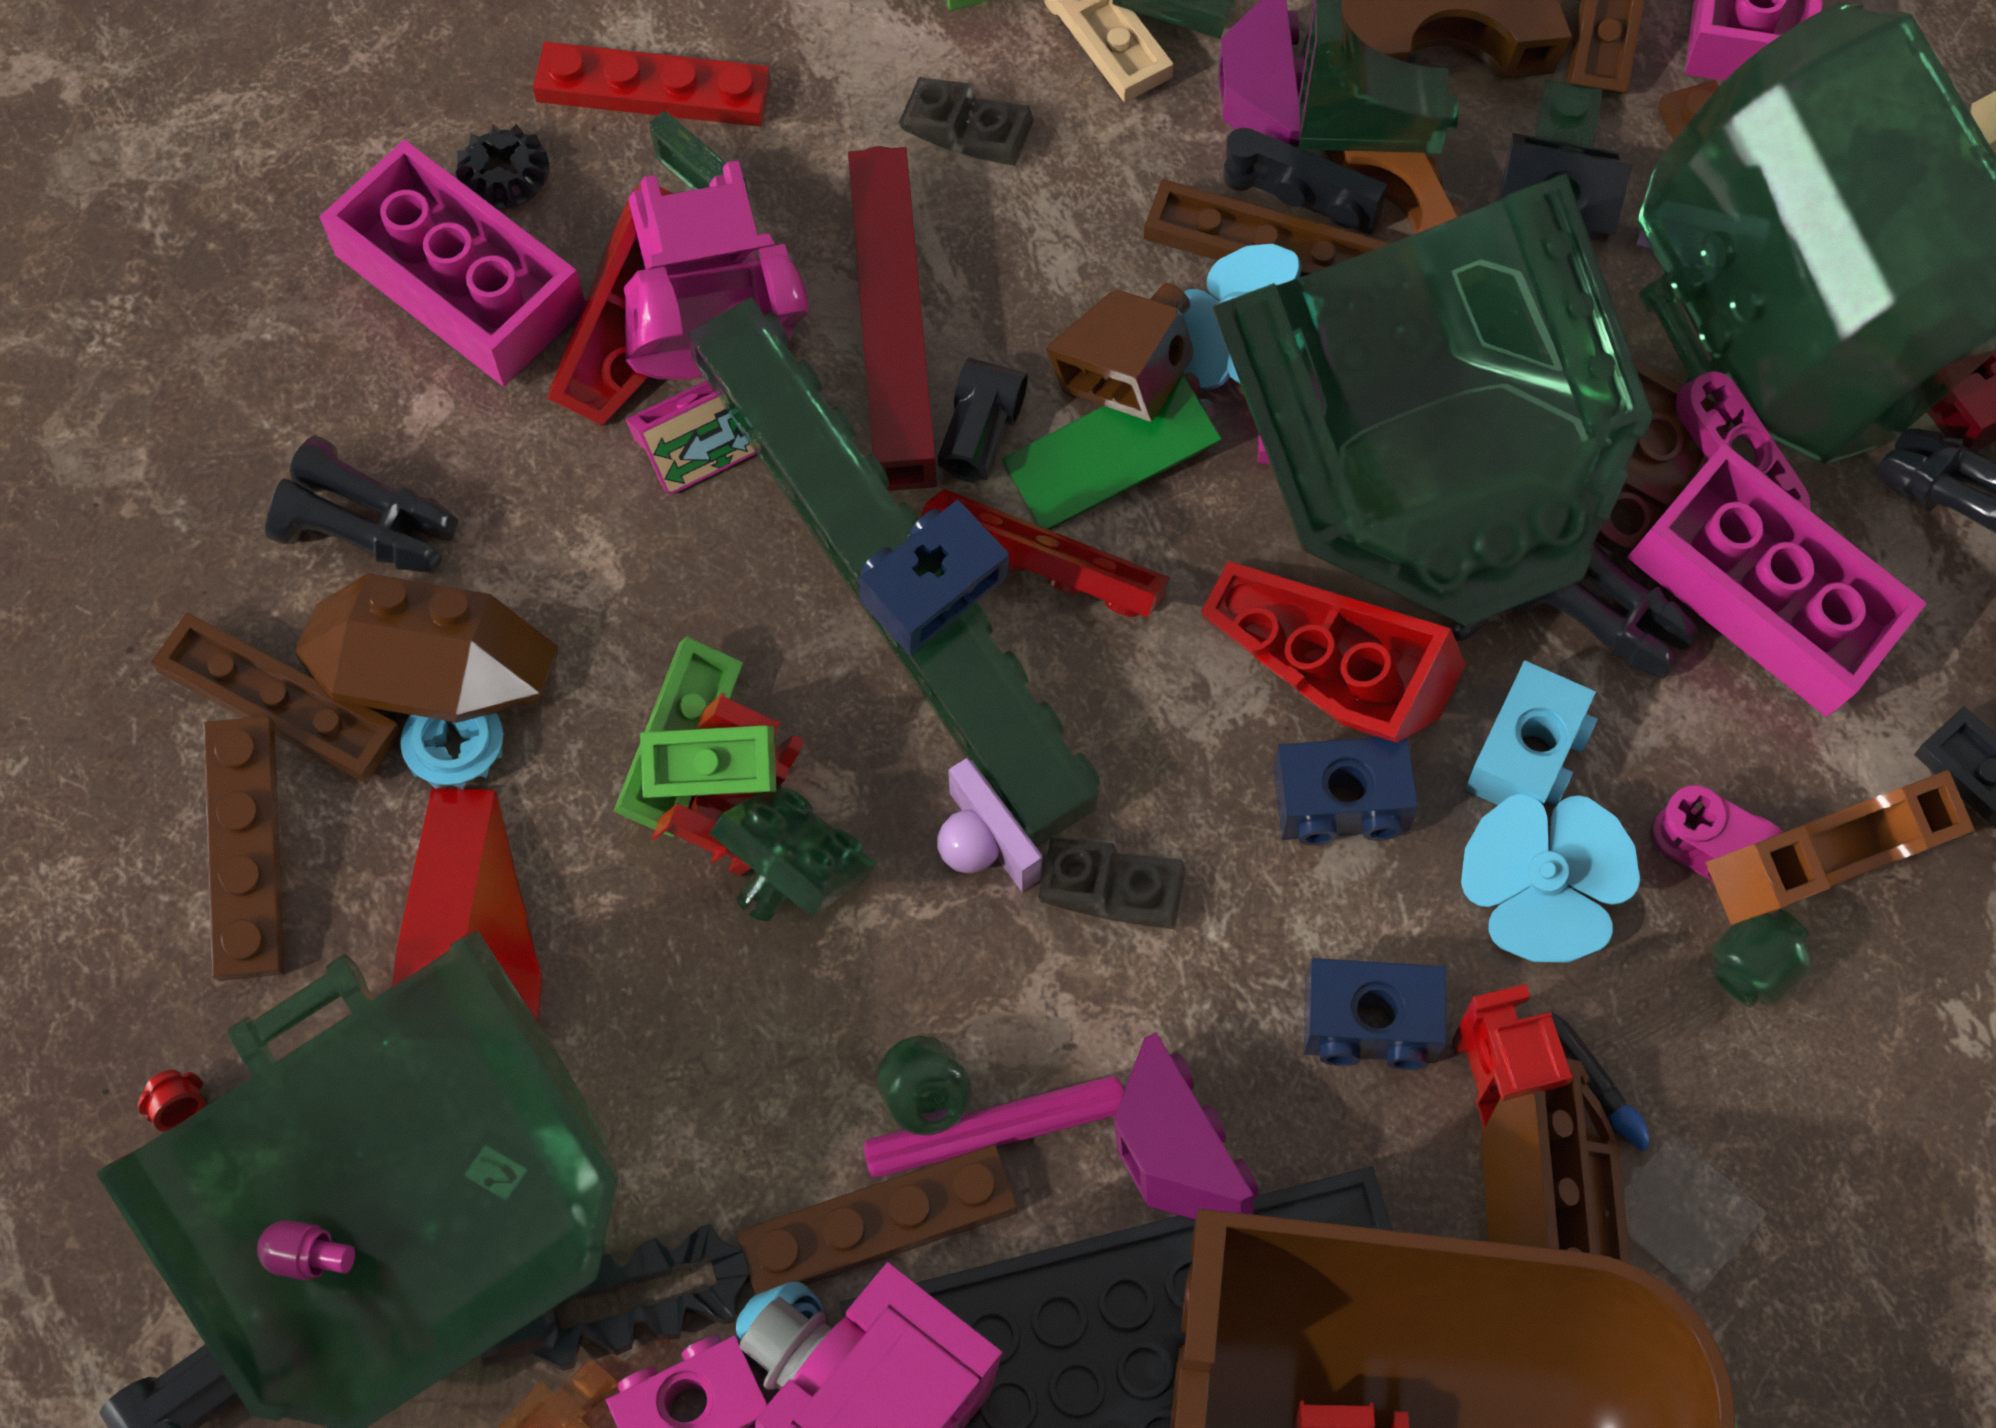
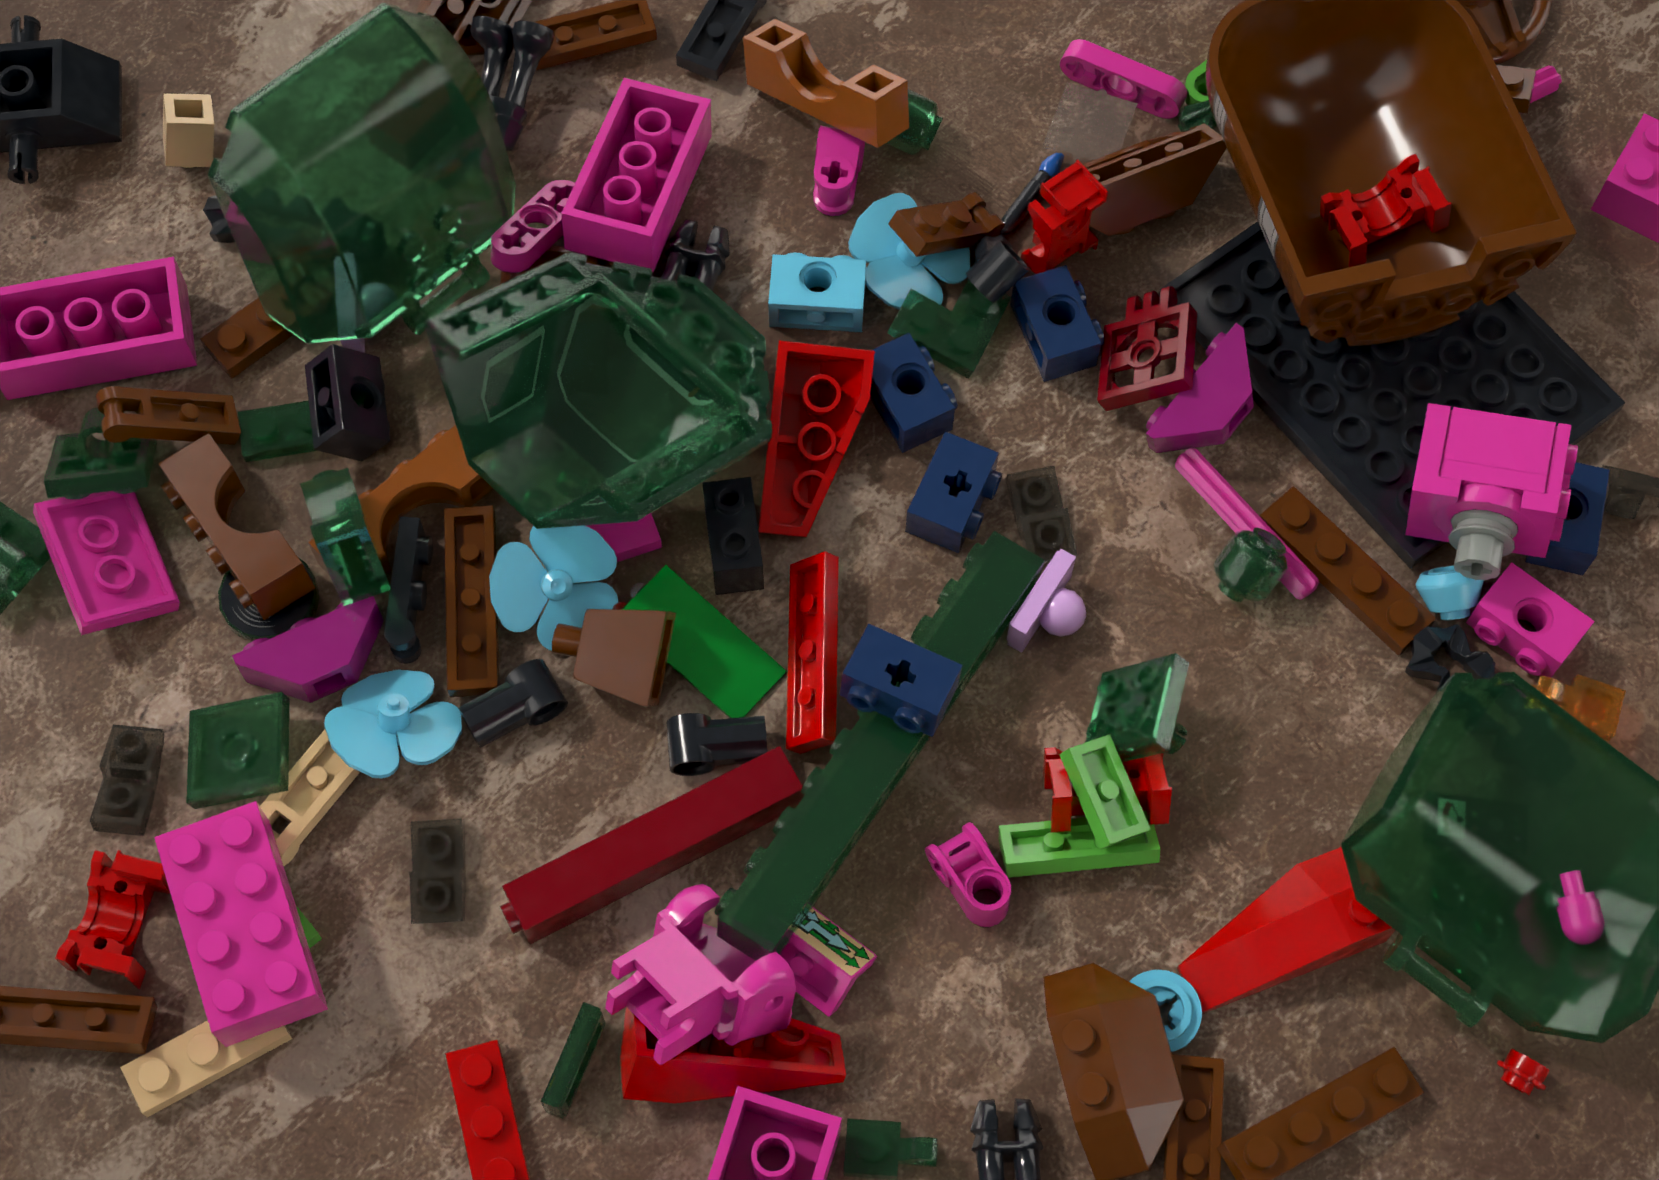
camera: 115 degrees left, 0 degrees up
(461, 413) = (877, 1149): none -> clear green plate
(703, 607) = (968, 866): none -> dark pink piece
(1121, 251) = (525, 697): none -> black piece
(1134, 113) = (378, 720): none -> medium azure piece
(1175, 754) = (934, 509): none -> dark blue brick
(1224, 518) = (733, 535): none -> black brick
(1339, 1131) = (1143, 322): none -> dark red piece
(1407, 881) = (953, 336): none -> clear green plate
(1474, 950) = (995, 267): none -> black piece
(1565, 921) = (945, 225): none -> reddish brown plate
(1756, 1268) = (1100, 69): none -> dark pink beam

